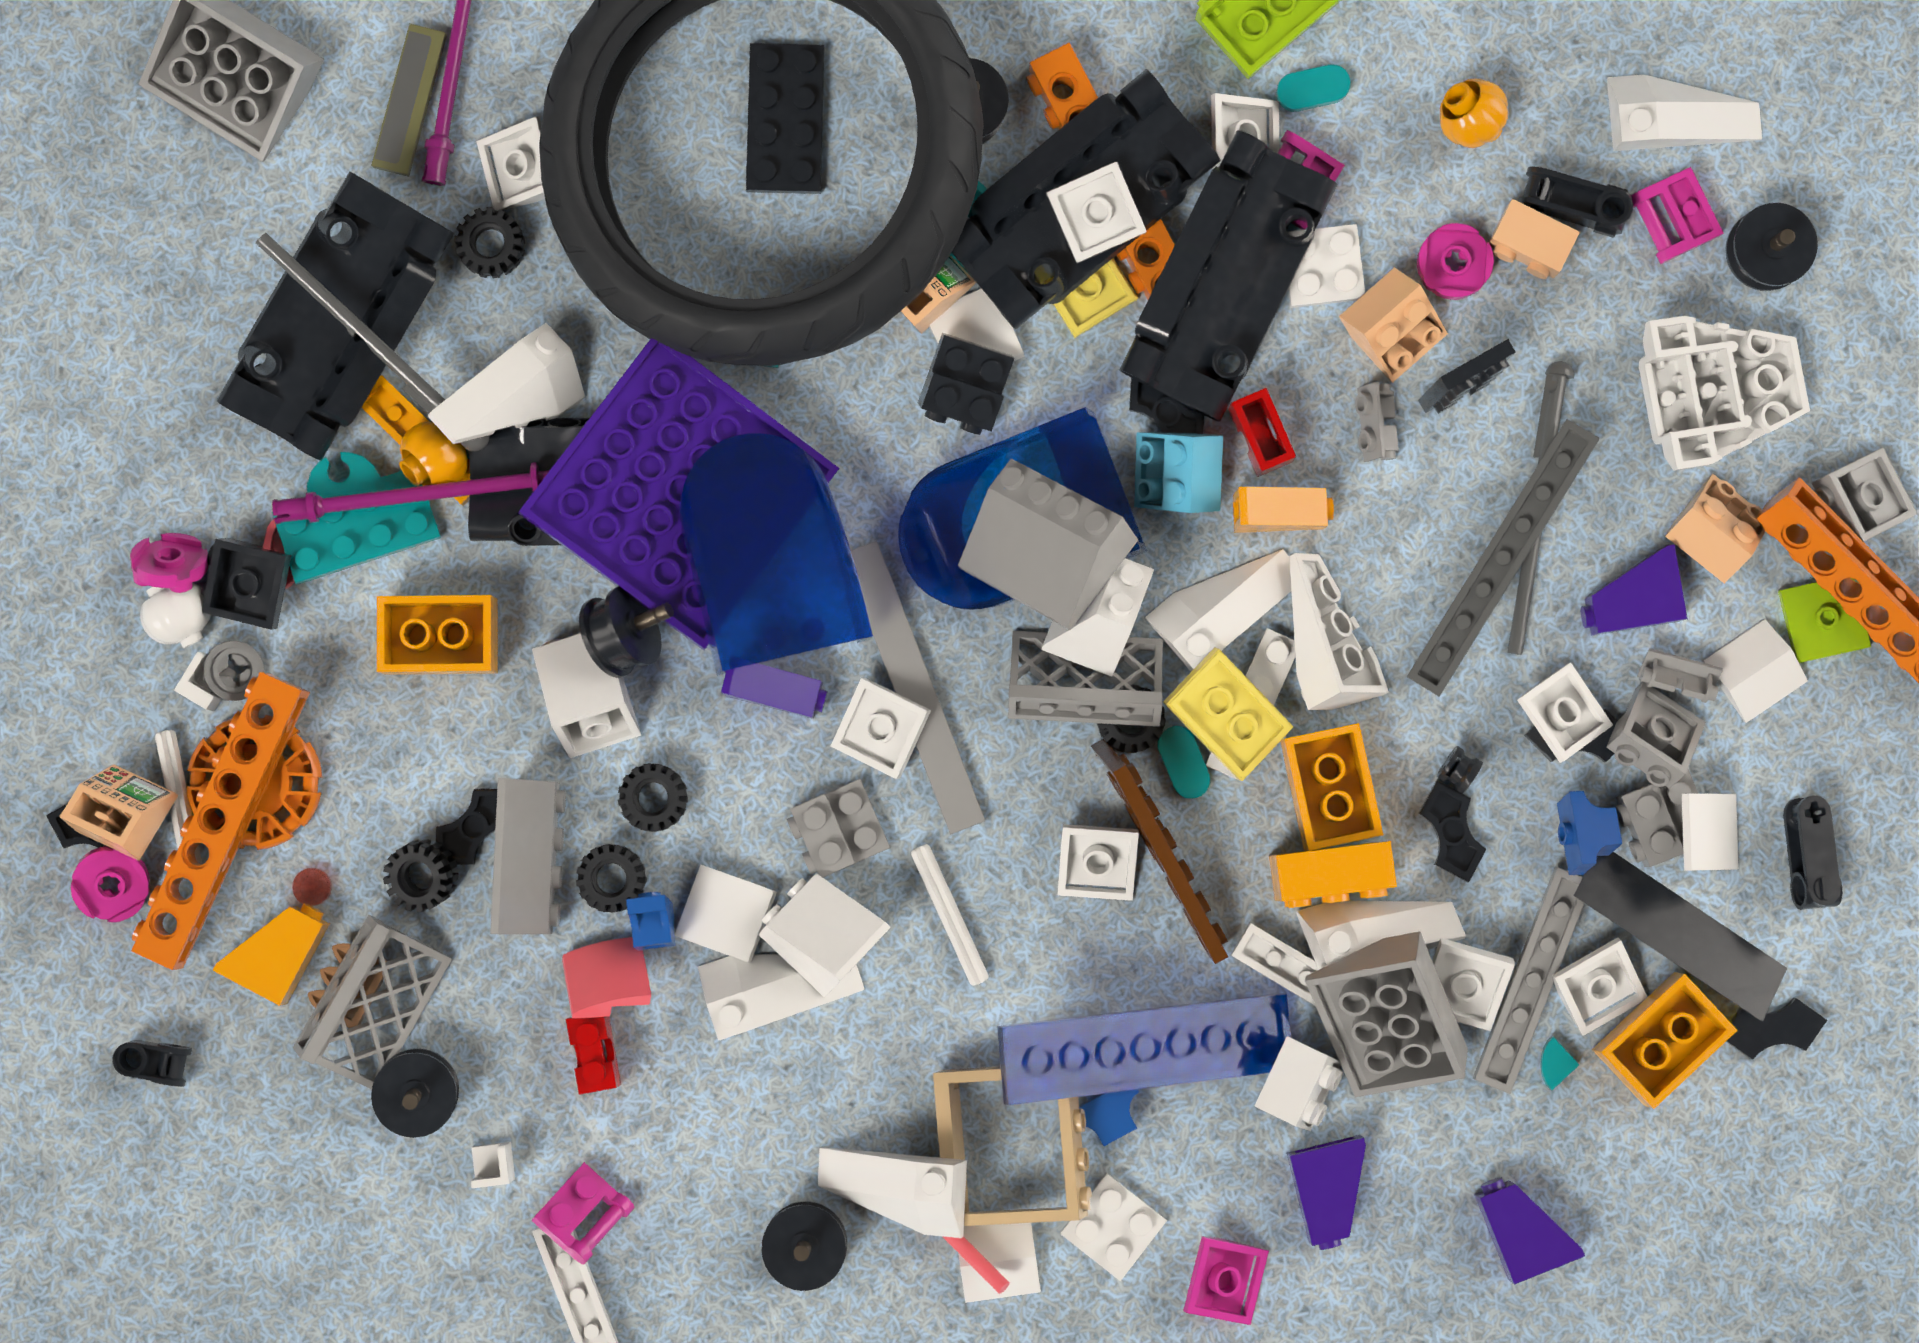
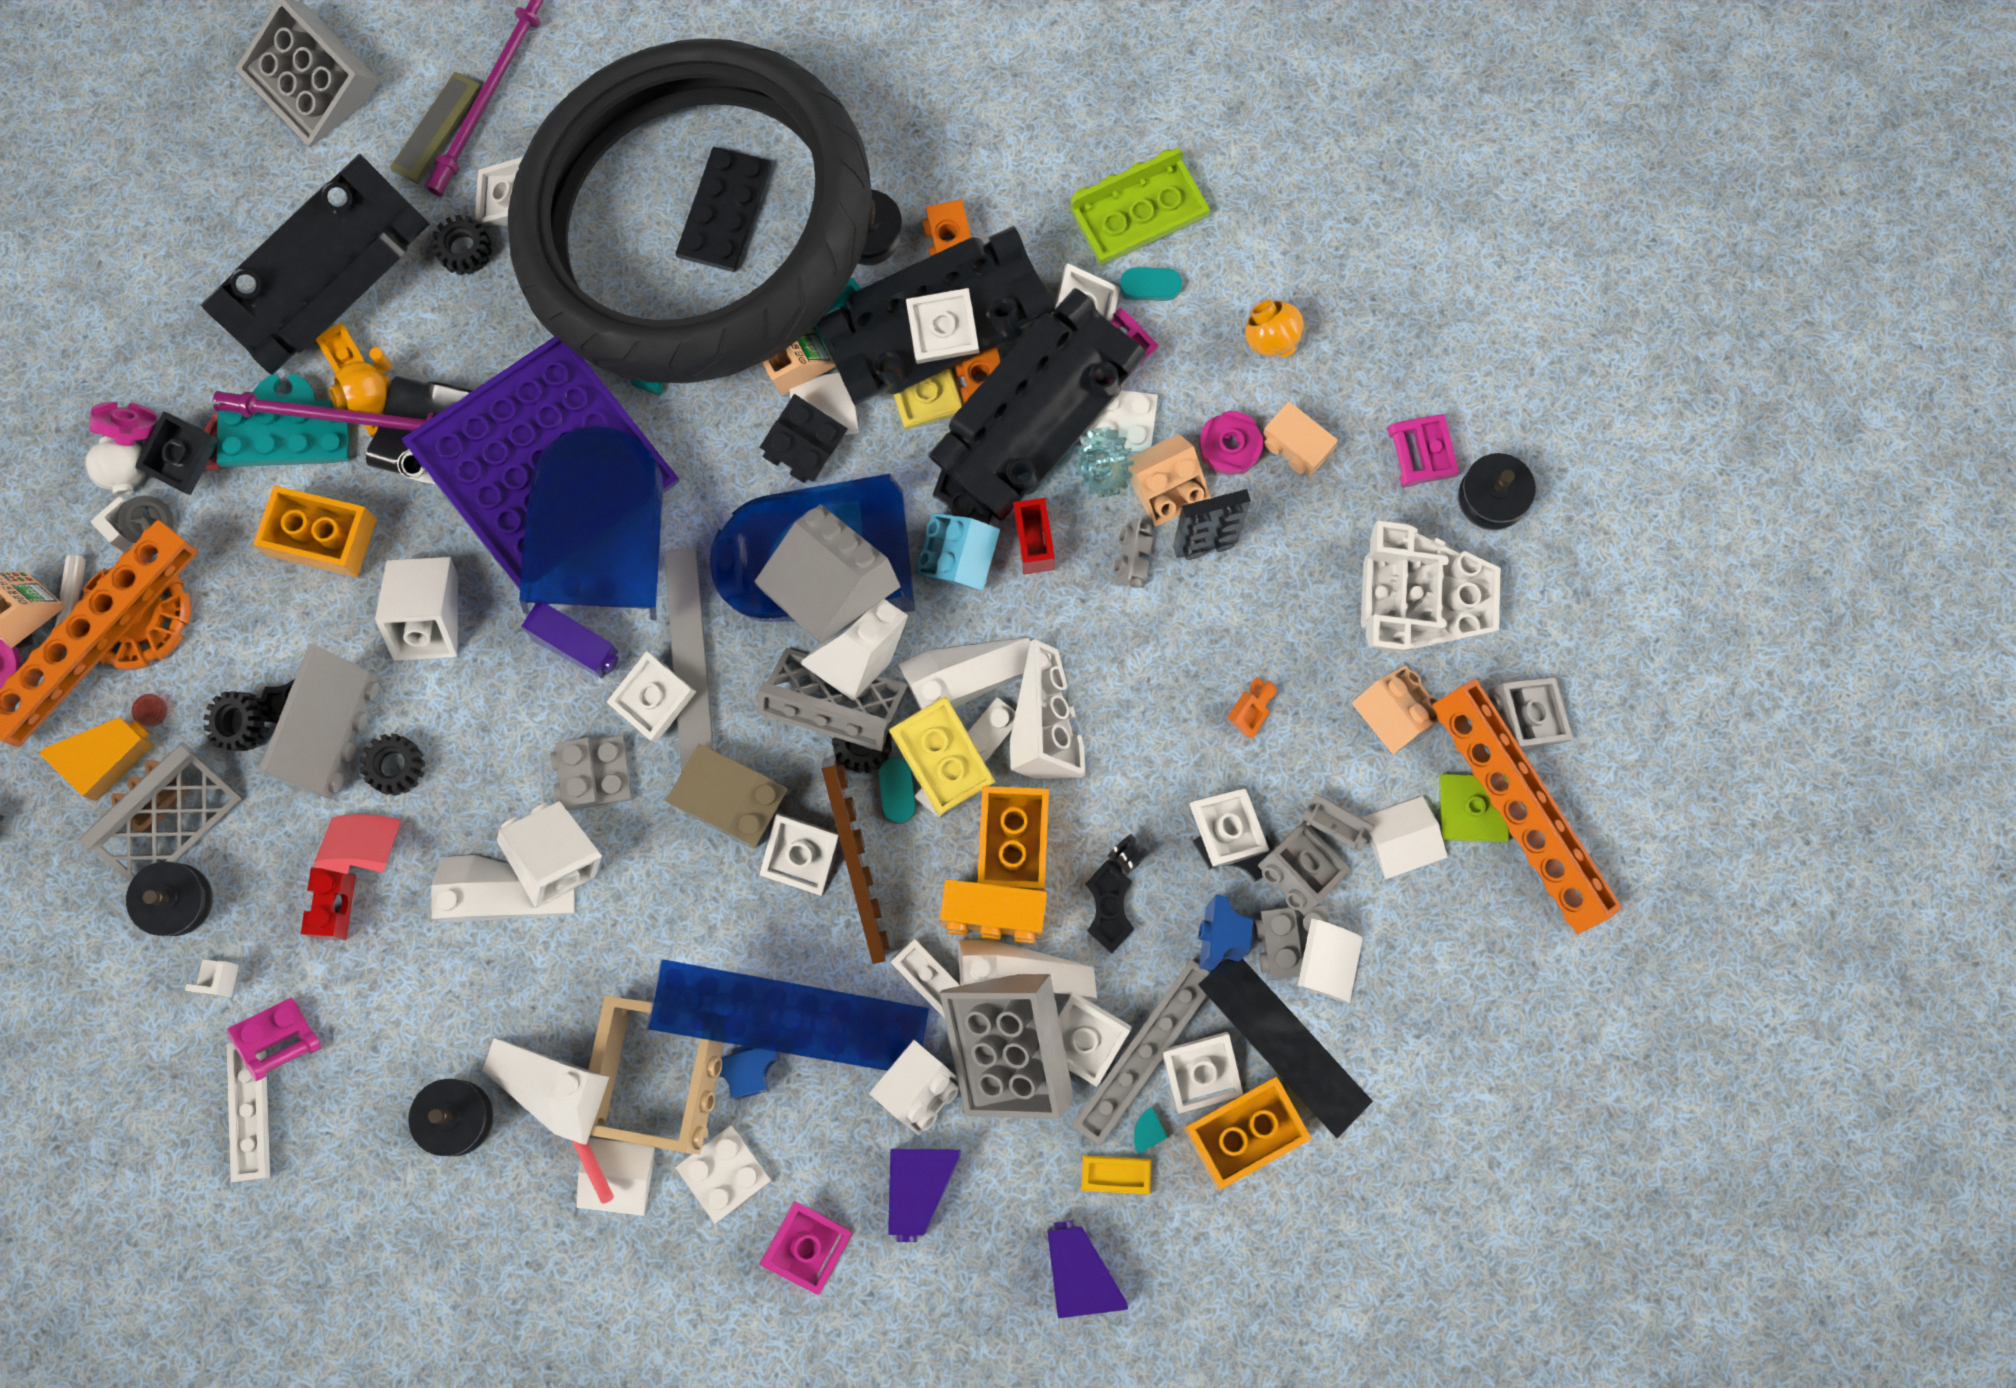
camera: 15 degrees right, 10 degrees down
(416, 386) = (359, 331): dark grey bar -> none
(522, 385) = (445, 350): white wedge -> none
(621, 632) = (457, 560): black wheel -> none
(630, 791) = (431, 699): black tyre -> none
(651, 921) = (409, 804): blue brick -> none
(725, 913) = (474, 817): white slope -> none
(949, 914) = (664, 868): white axle -> none
(1000, 819) = (726, 795): none -> dark tan slope
(1281, 509) = (1032, 600): light orange slope -> none
(1319, 325) = (1103, 462): none -> clear light blue gear
(1503, 557) = (1208, 687): dark grey plate -> none
(1533, 1117) = (1116, 1175): none -> yellow tile
(1548, 428) = (1293, 552): dark grey bar -> none
(1554, 570) = (1250, 708): none -> orange plate
(1576, 200) = (1344, 418): black piece -> none
(1639, 597) = (1316, 749): dark purple slope -> none
(1665, 113) = (1433, 371): white wedge -> none
(1791, 1025) = (1363, 1152): black tile -> none
(1812, 854) = (1416, 1004): black piece -> none

